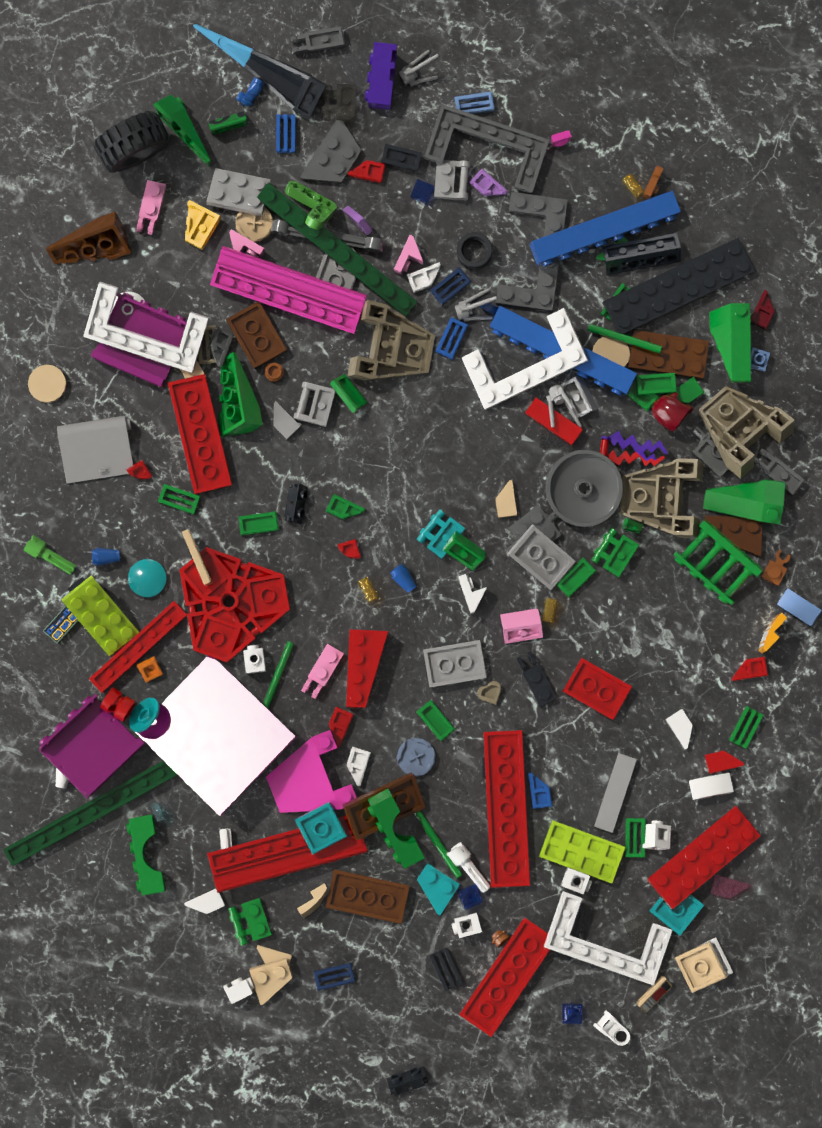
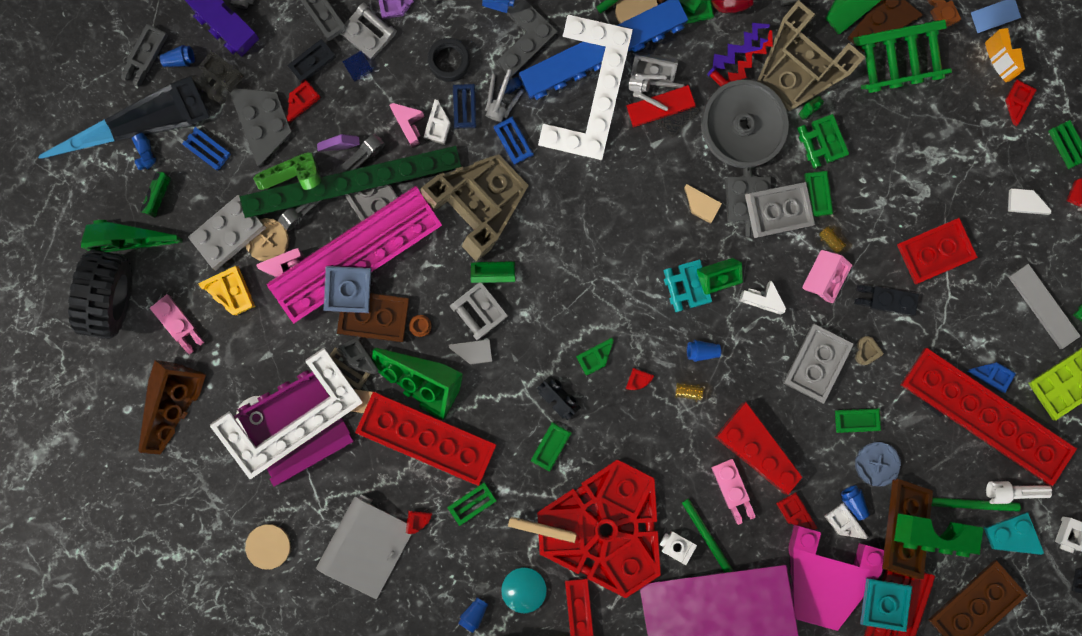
camera: 55 degrees left, 0 degrees up
(260, 303) = (347, 289): none -> sand blue tile
(334, 65) = (178, 57): none -> blue cone
(377, 759) = (855, 502): none -> blue cone
(469, 896) = (1045, 512): clear blue tile -> none

